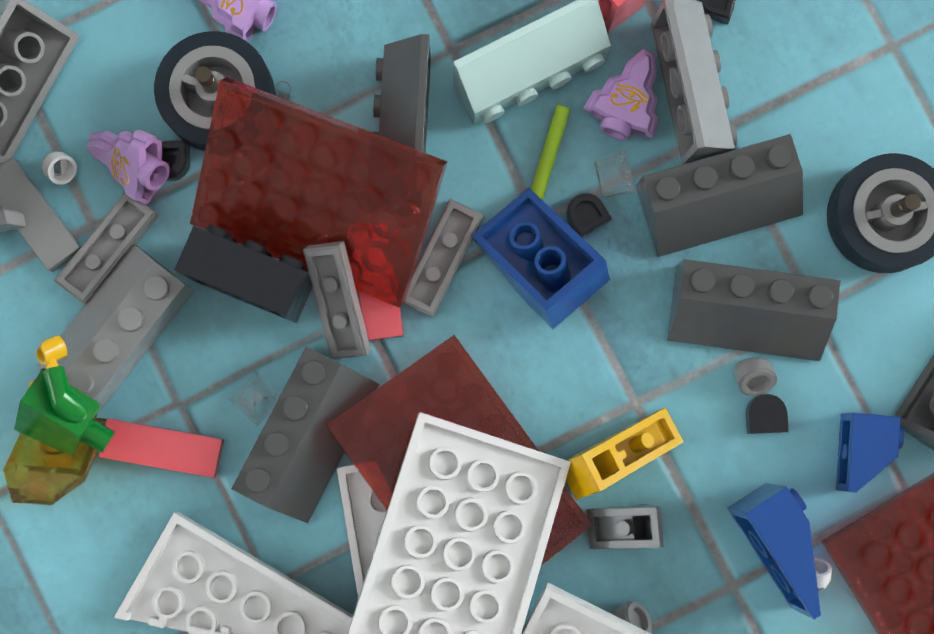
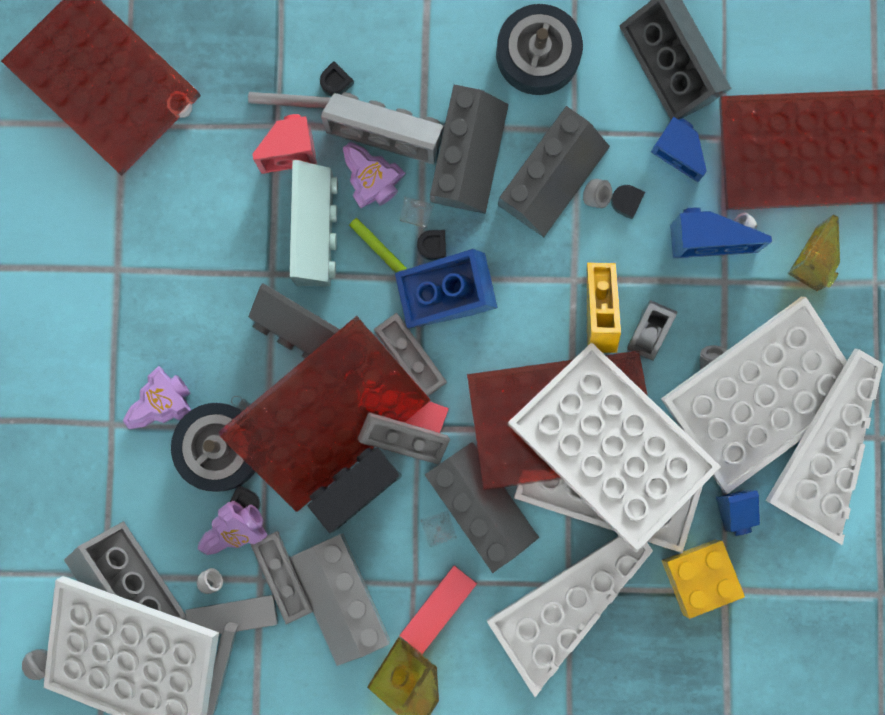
camera: 55 degrees left, 0 degrees up
(56, 410) = (379, 660): green torso -> none

